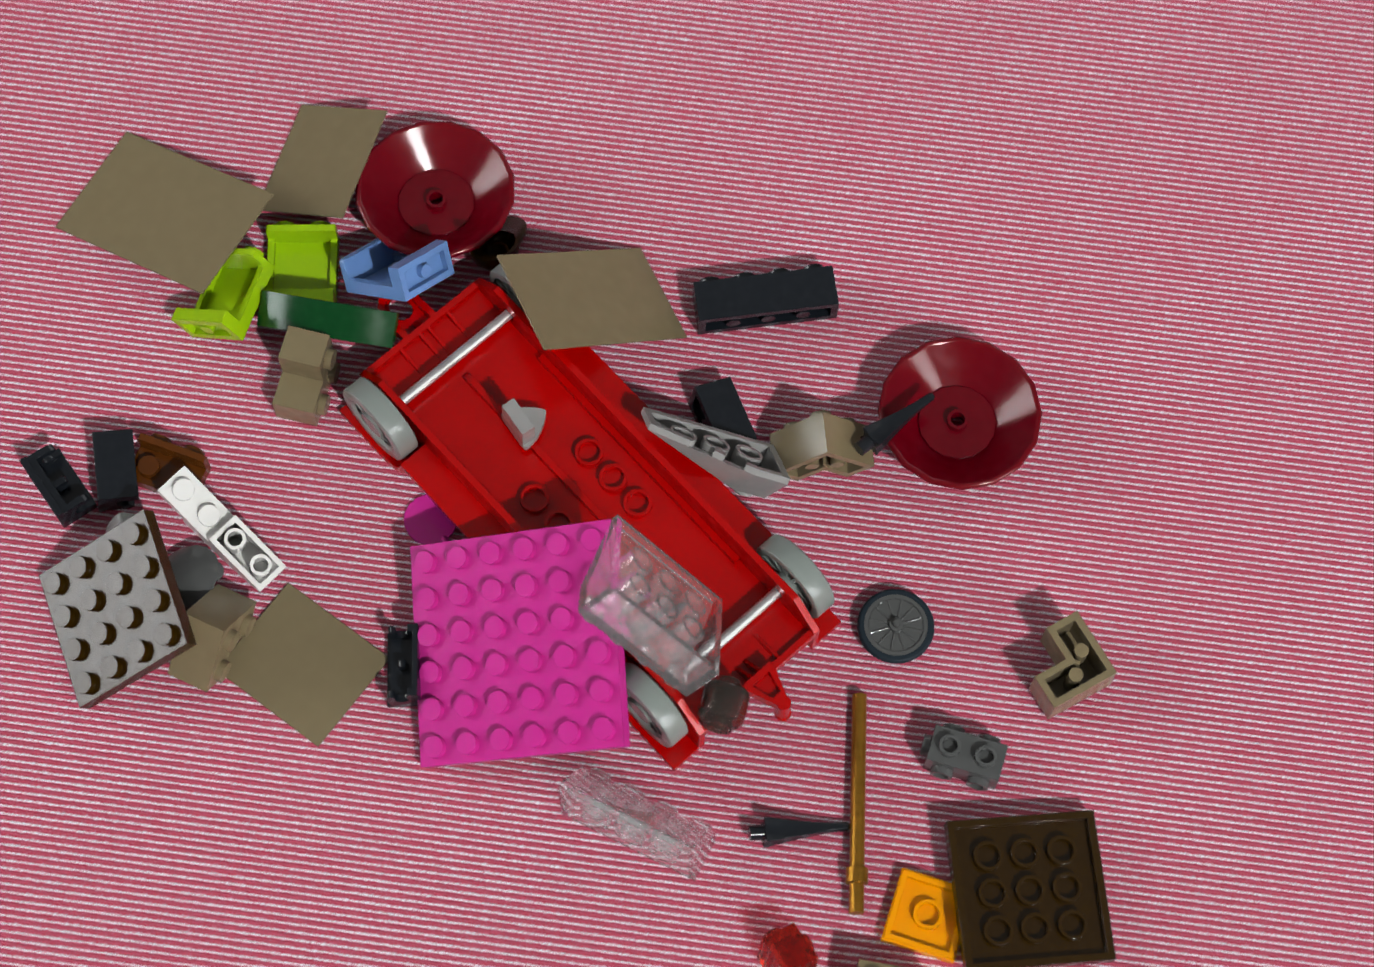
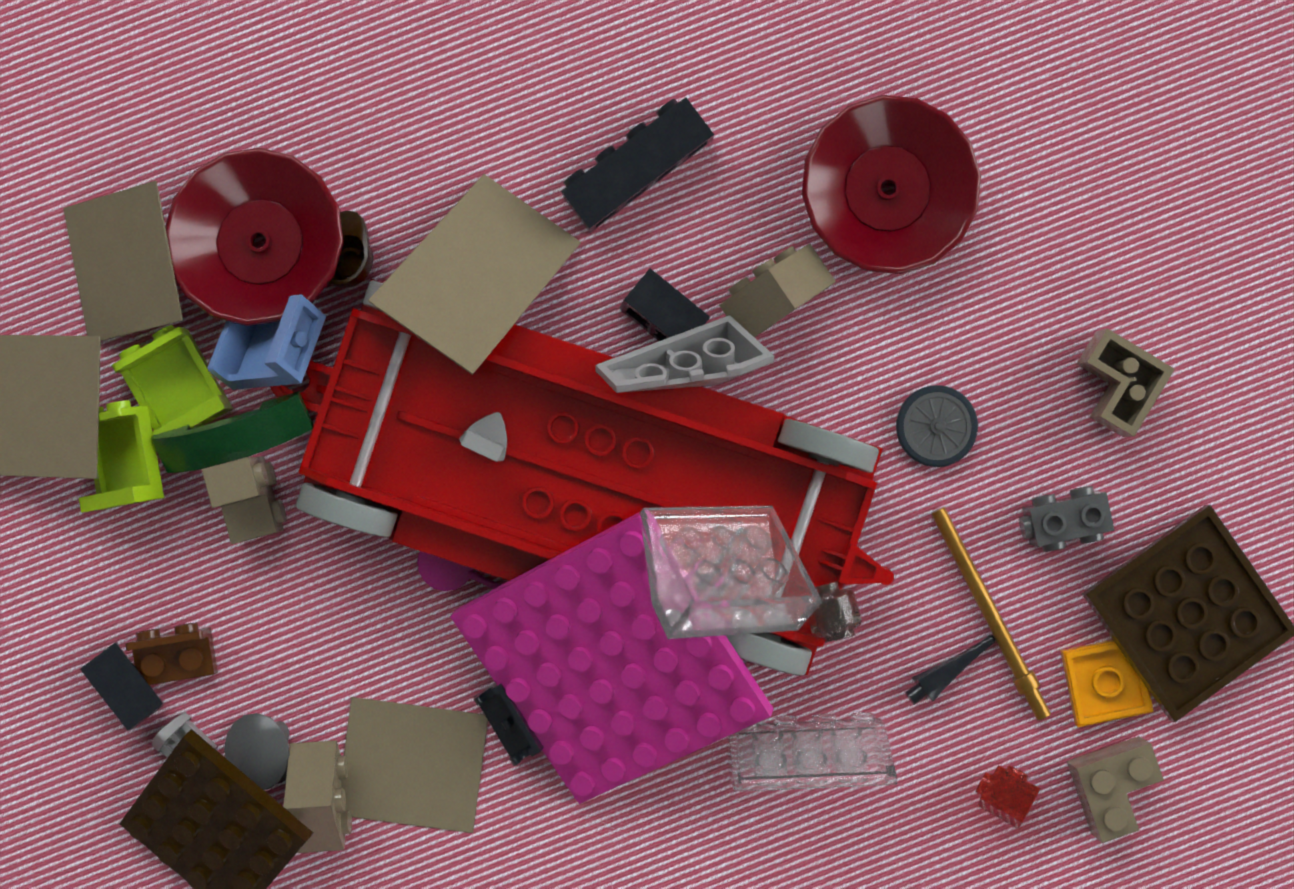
camera: 25 degrees left, 20 degrees up
(58, 484) = (79, 729): black hinge -> none
(221, 529) = (261, 687): white slope -> none
(882, 431) = (830, 253): black piece -> none

